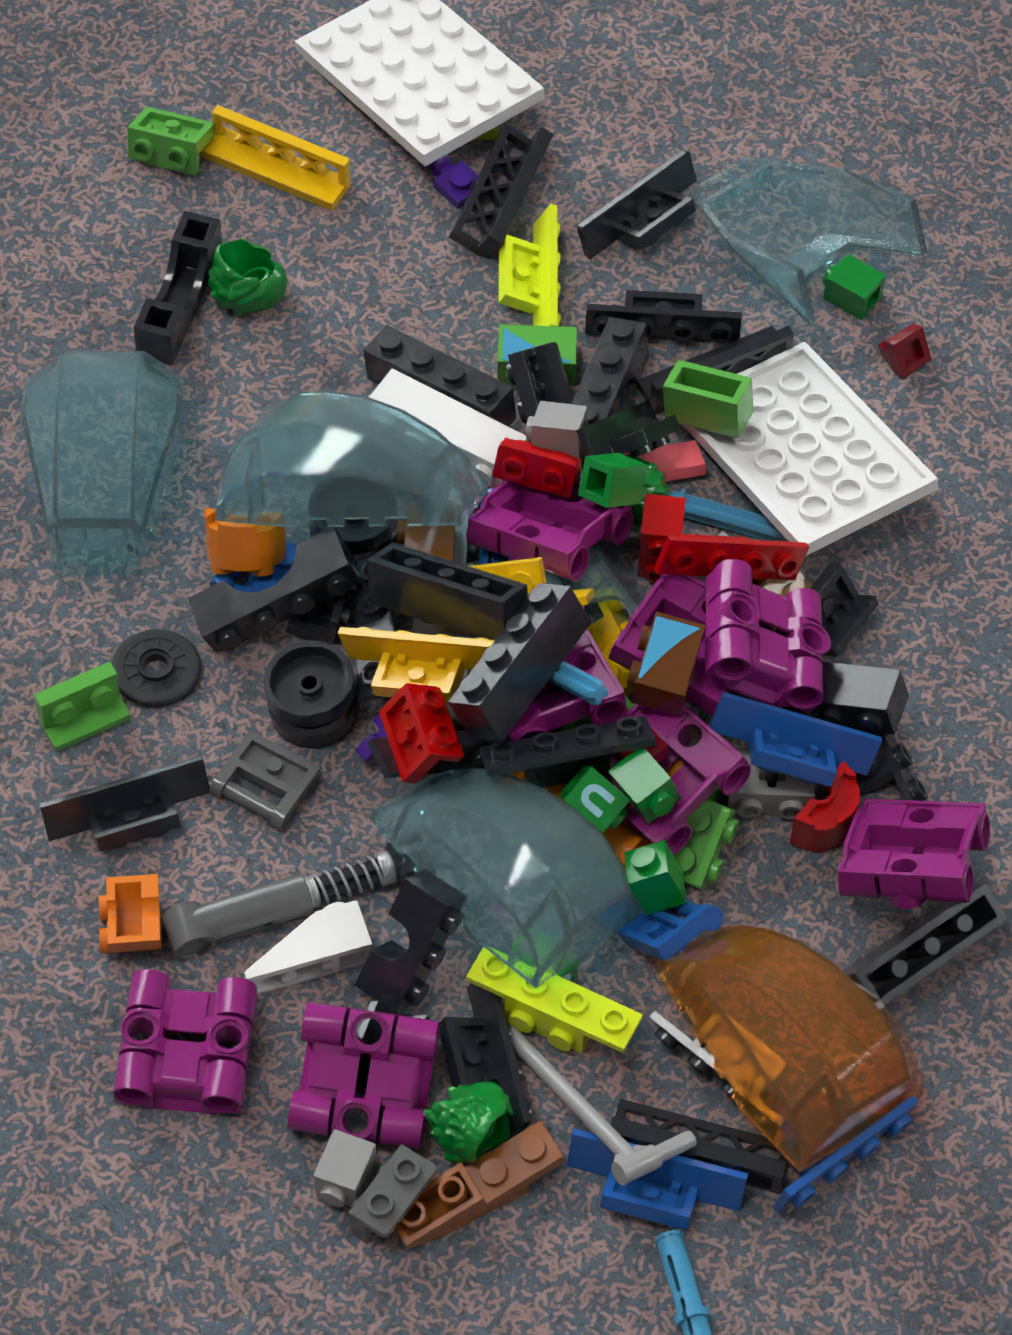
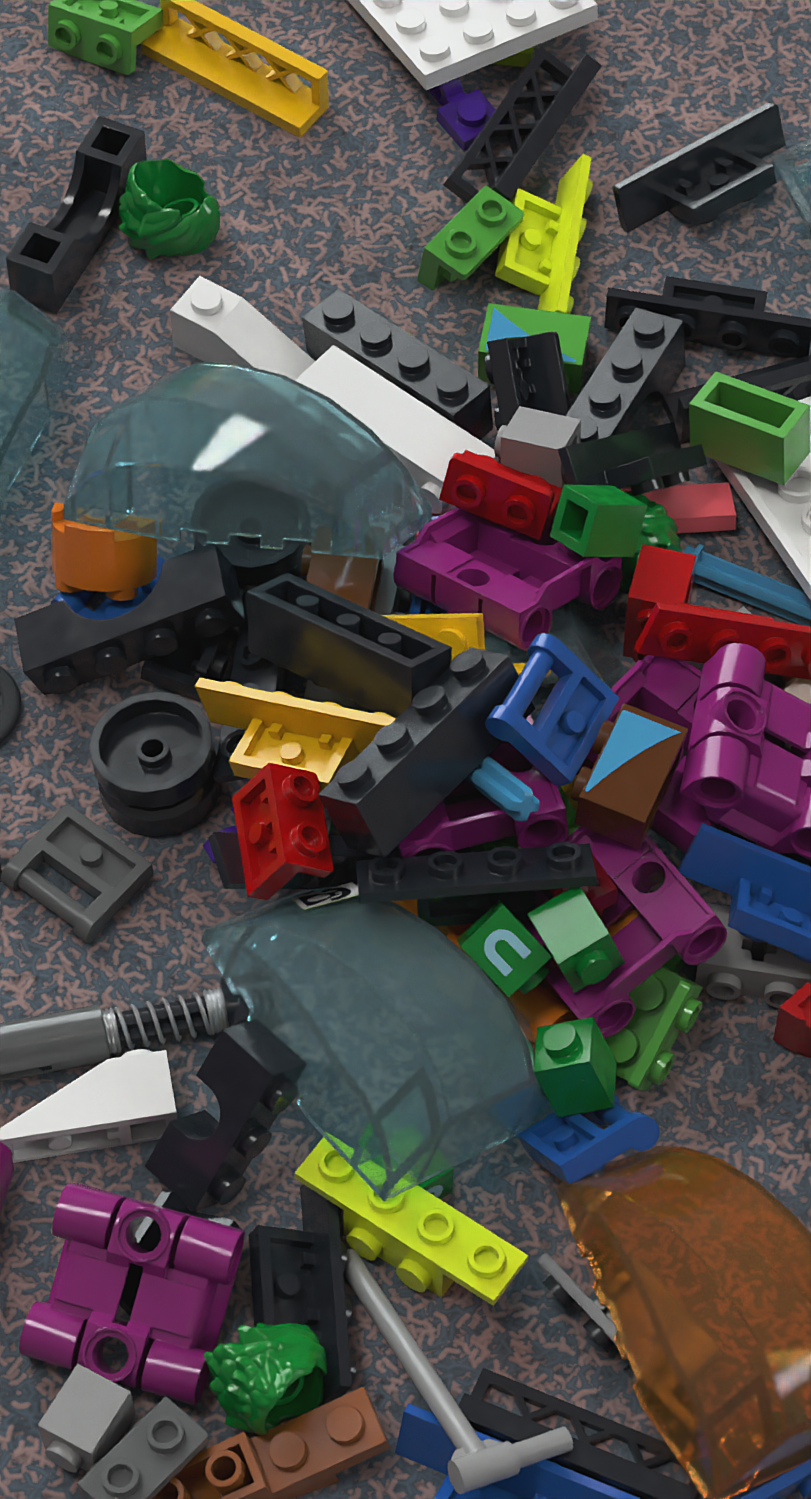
camera: 10 degrees right, 0 degrees up
(310, 366) = (227, 329): none -> white slope
(459, 775) = (326, 896): none -> sticker
(476, 276) = (468, 238): none -> bright green bracket
(617, 627) = (567, 720): none -> blue plate

